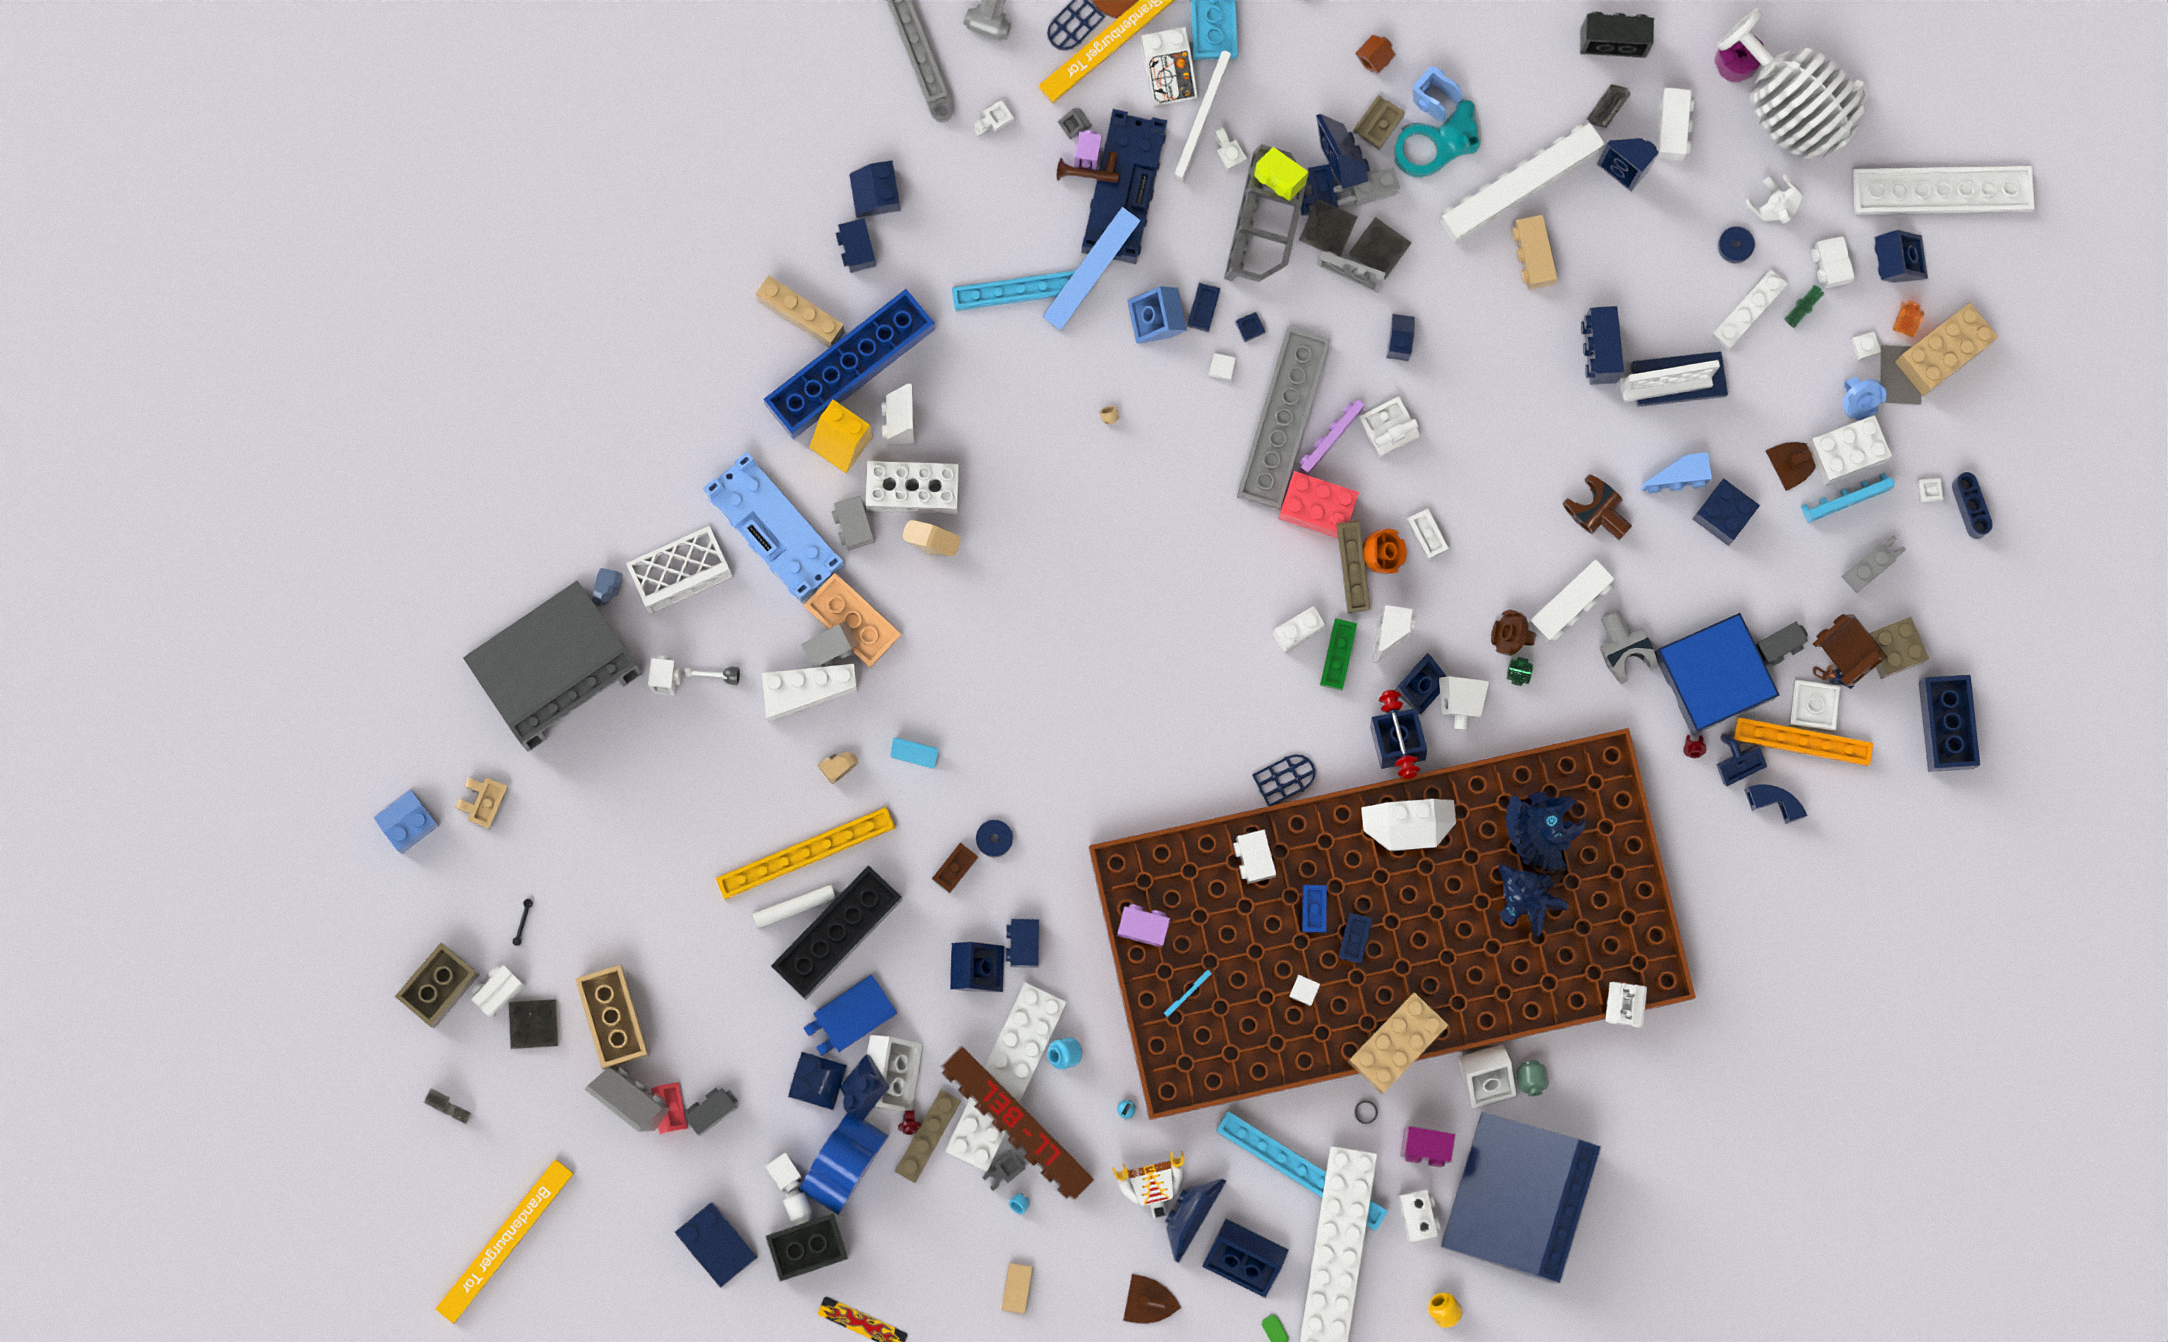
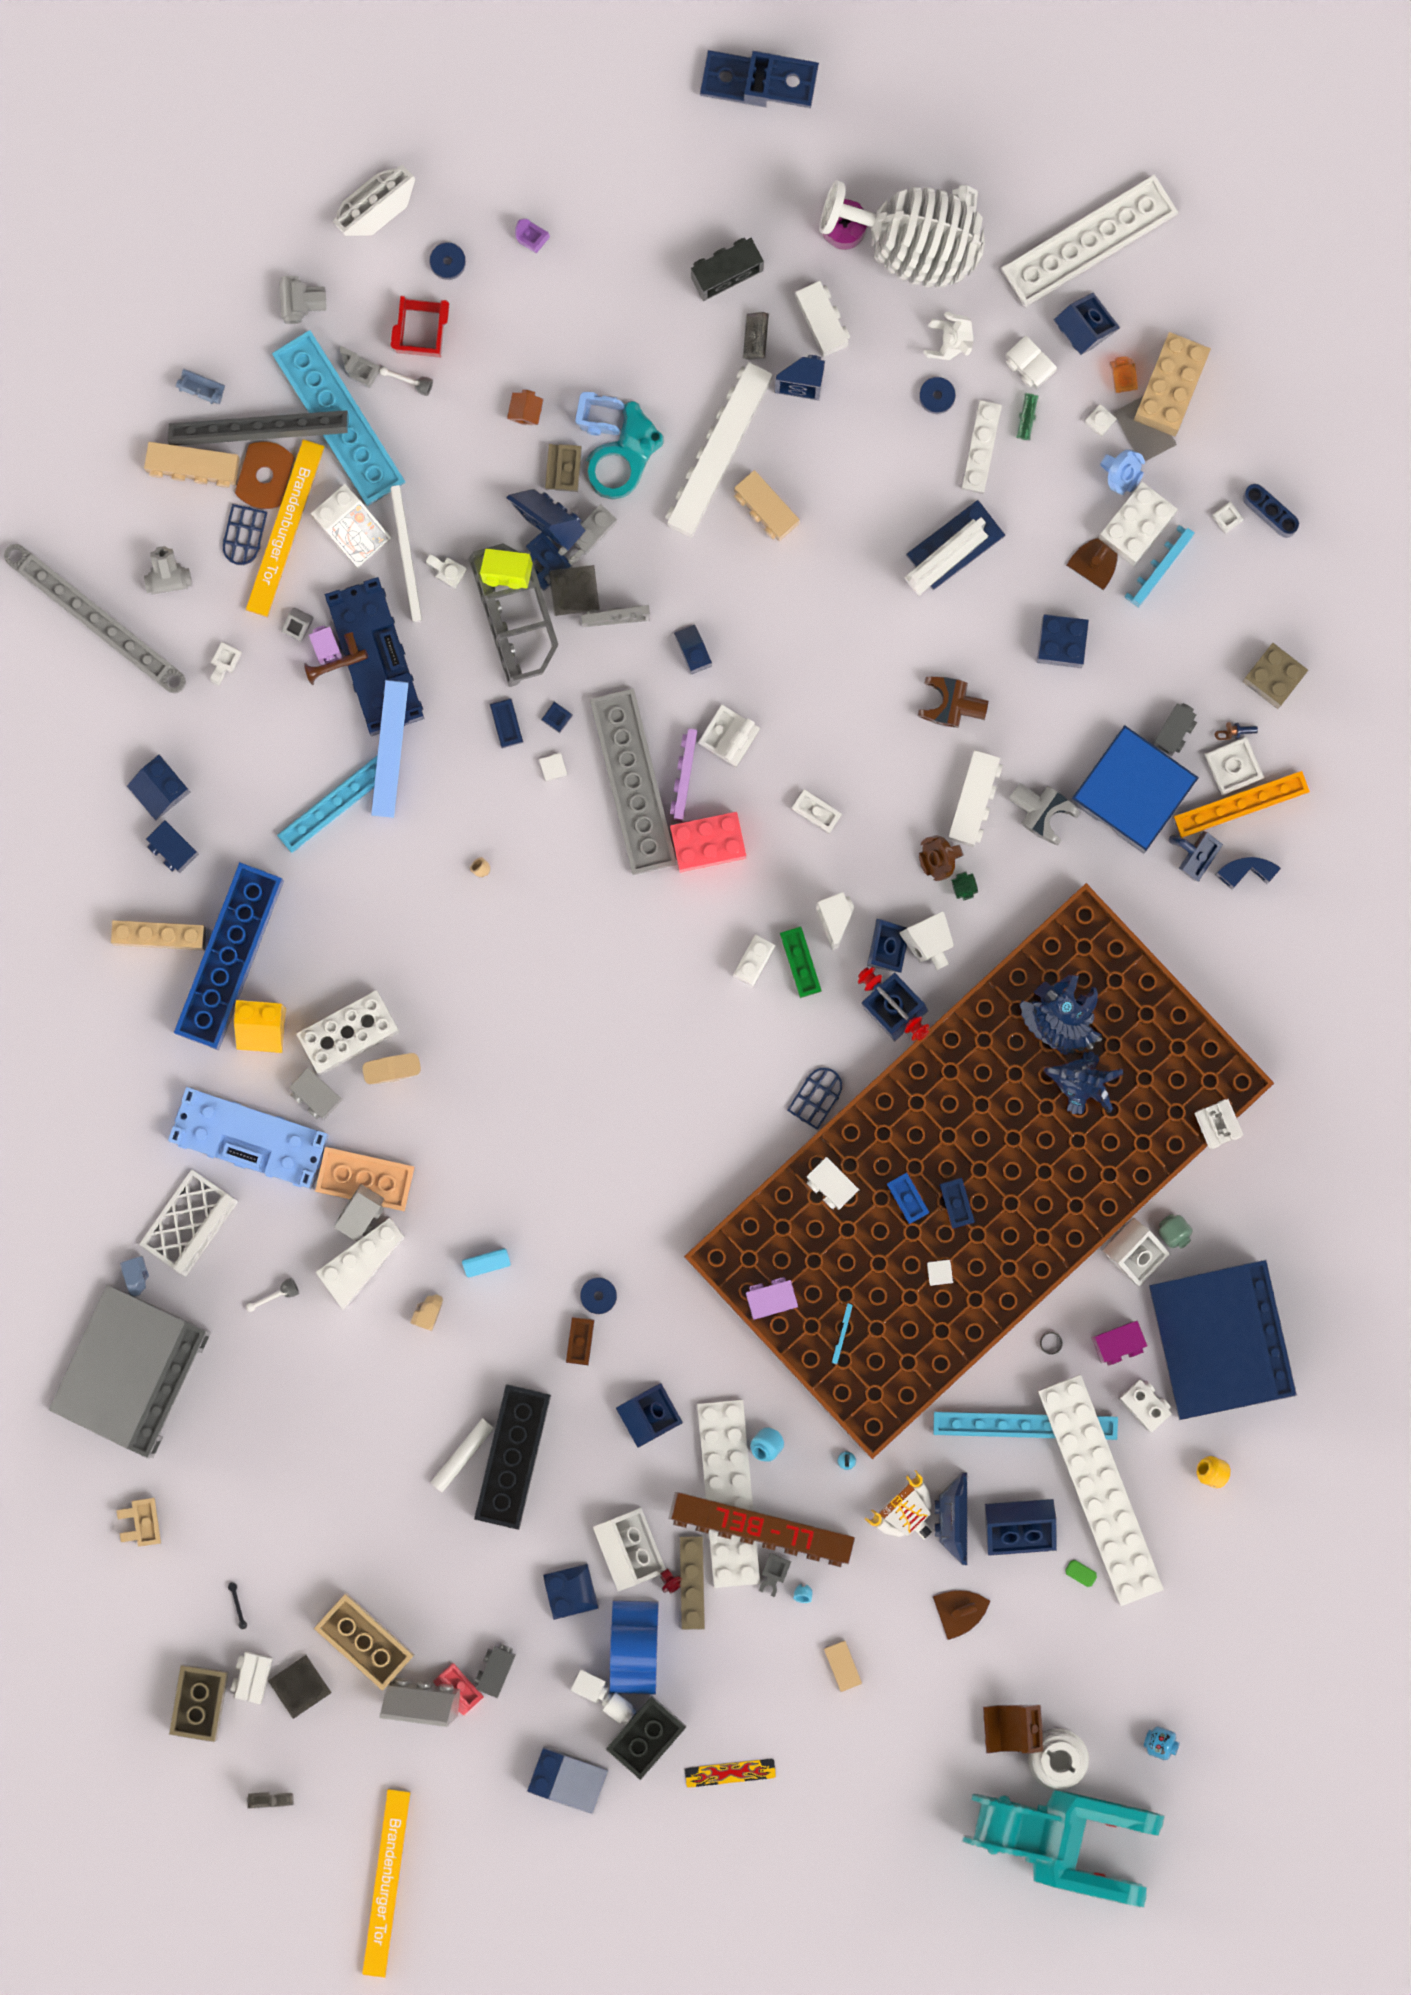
camera: 25 degrees left, 5 degrees up
(406, 822) = (85, 1579): medium blue slope -> none
(664, 675) = (232, 1323): white brick -> none
(805, 853) = (444, 1403): yellow tile -> none
(852, 1015) = (567, 1519): blue tile -> none
(863, 1088) = (614, 1576): dark blue slope -> none
(899, 416) = (300, 977): white slope -> none
(1024, 943) = (677, 1371): dark blue brick -> none
(1157, 314) = (470, 755): medium blue slope -> none
(1353, 566) = (769, 878): dark tan tile -> none
(1380, 247) = (629, 581): clear smoke tile -> none
(1384, 551) = (788, 850): orange cylinder -> none
(1397, 1043) = (1045, 1272): tan brick -> none
(1409, 823) = (947, 1077): white wedge -> none
(1602, 345) = (872, 556): dark blue brick -> none
(1687, 471) = (1008, 624): light blue slope -> none
(1694, 749) = (1153, 865): dark red plate -> none
(1850, 648) = (1237, 700): reddish brown panel -> none
(1872, 565) = (1214, 614): light grey hinge -> none
(1949, 723) = (1357, 715): dark blue brick -> none

